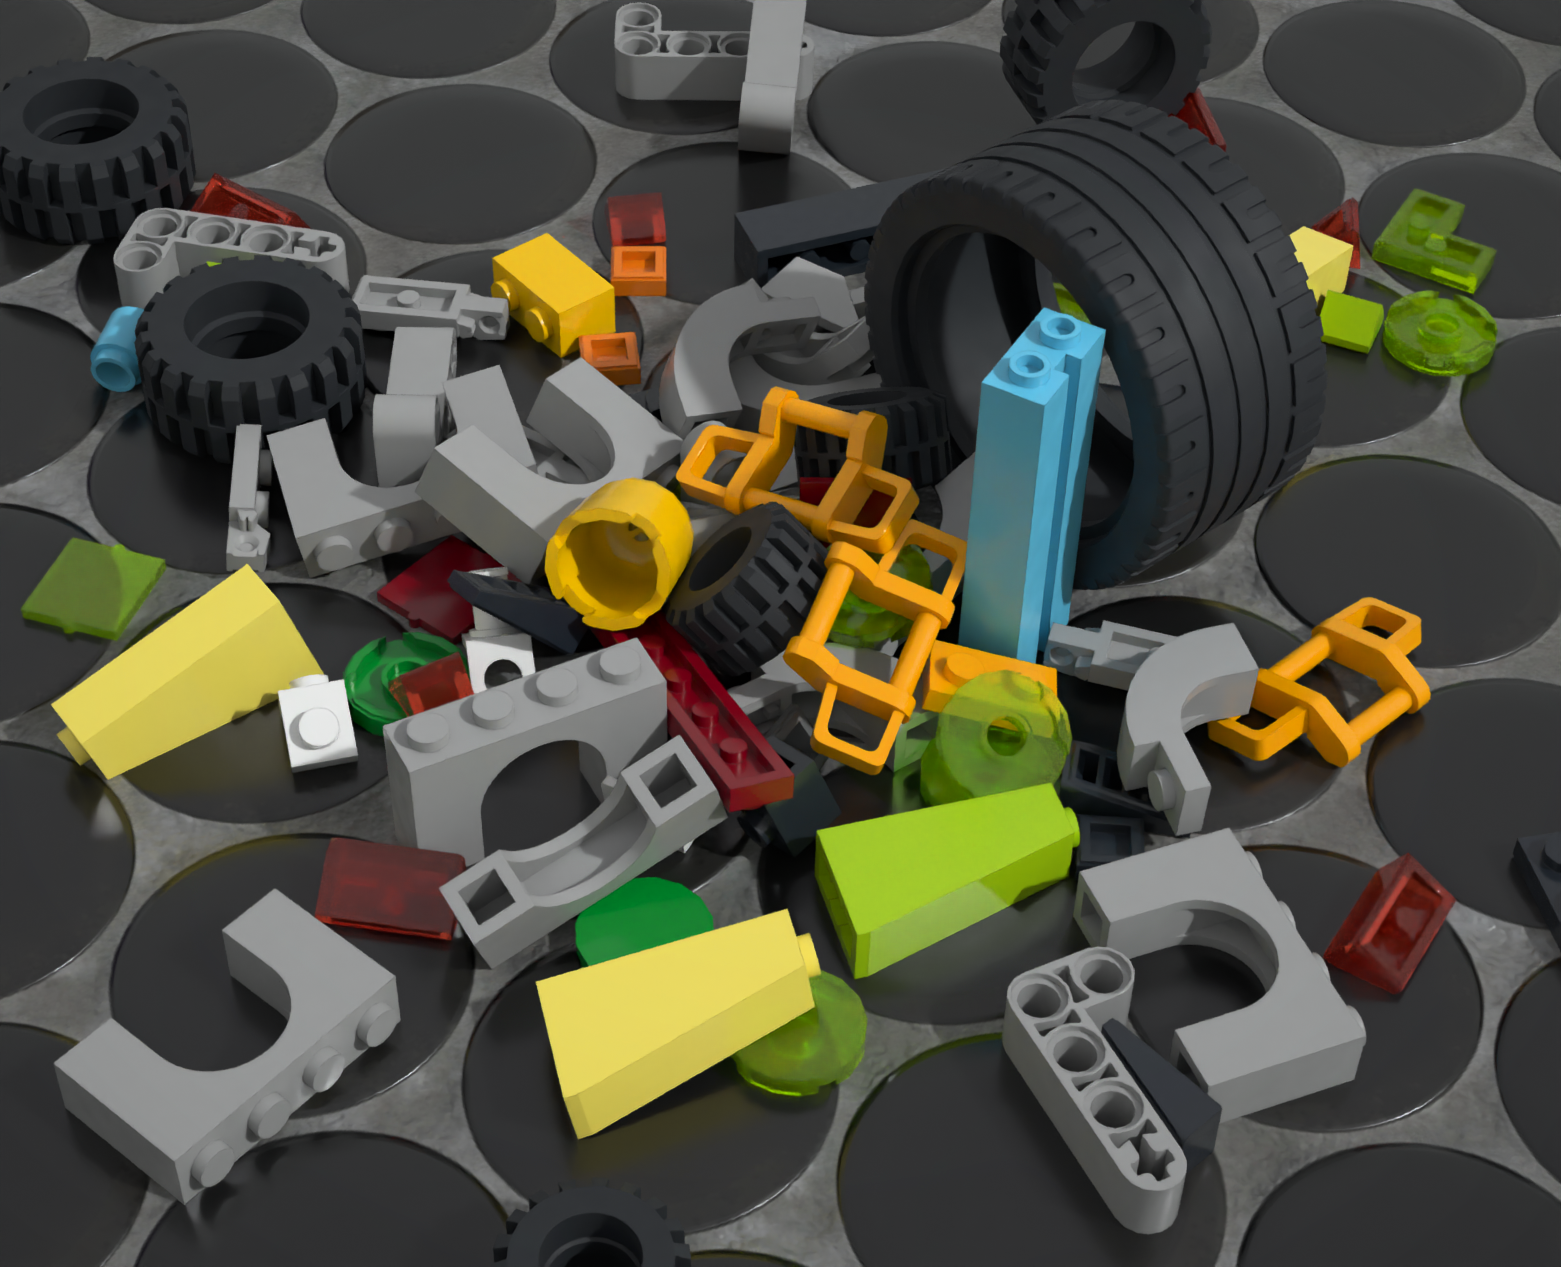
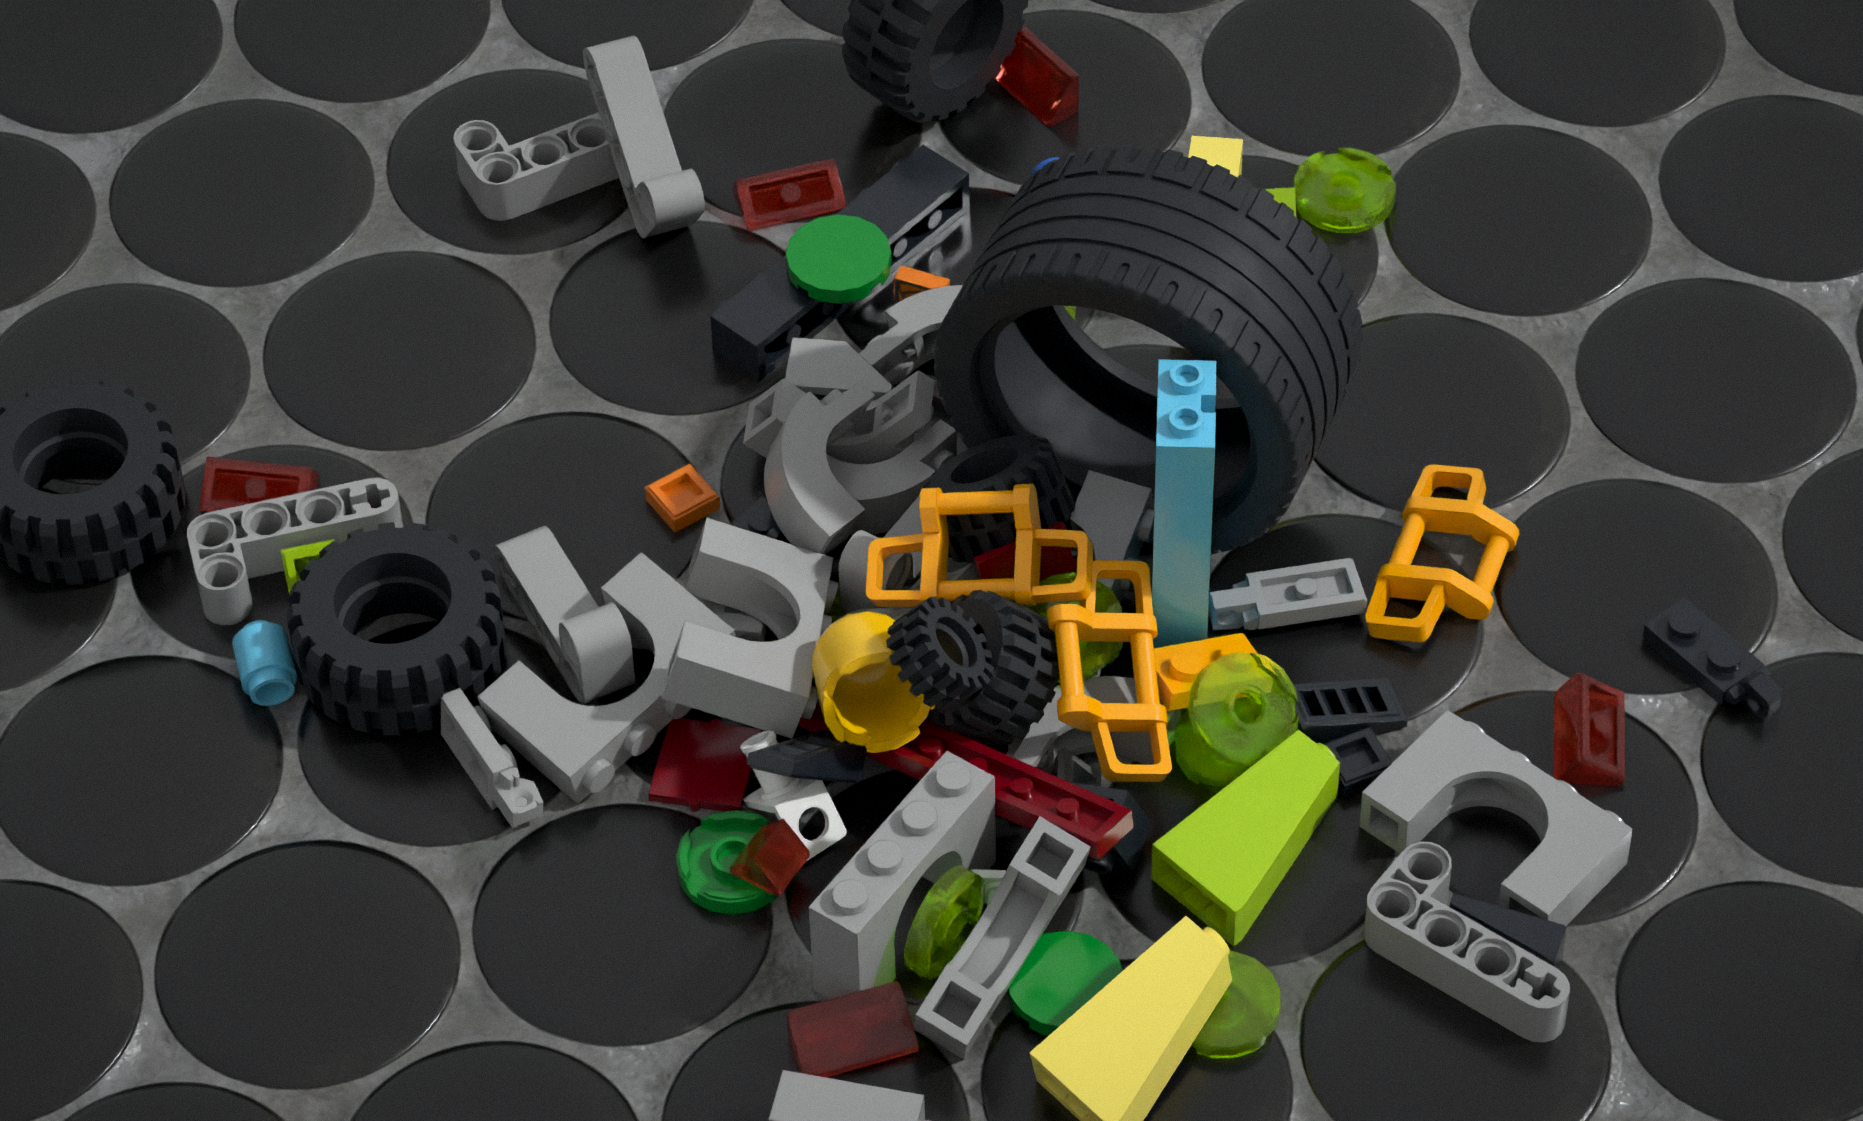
camera: 25 degrees left, 5 degrees up
(94, 589) = (408, 891): clear neon green piece -> none
(186, 677) = (571, 933): light yellow slope -> none
(317, 723) = (694, 925): white bracket -> none
(420, 303) = (500, 511): light grey hinge -> none
(553, 294) = (598, 456): yellow brick -> none
(556, 785) = (941, 919): none -> clear neon green tile
(635, 219) = (609, 351): clear red slope -> none
(638, 270) = (645, 400): orange tile -> none
(658, 548) = (939, 653): none -> black tyre
(863, 197) = (838, 258): none -> green tile
(891, 155) = (789, 194): none -> clear red slope
(1175, 689) = (1352, 601): light grey arch -> none
(1344, 226) = (1211, 118): clear red slope -> none
(1423, 243) = (1281, 108): clear neon green tile -> none

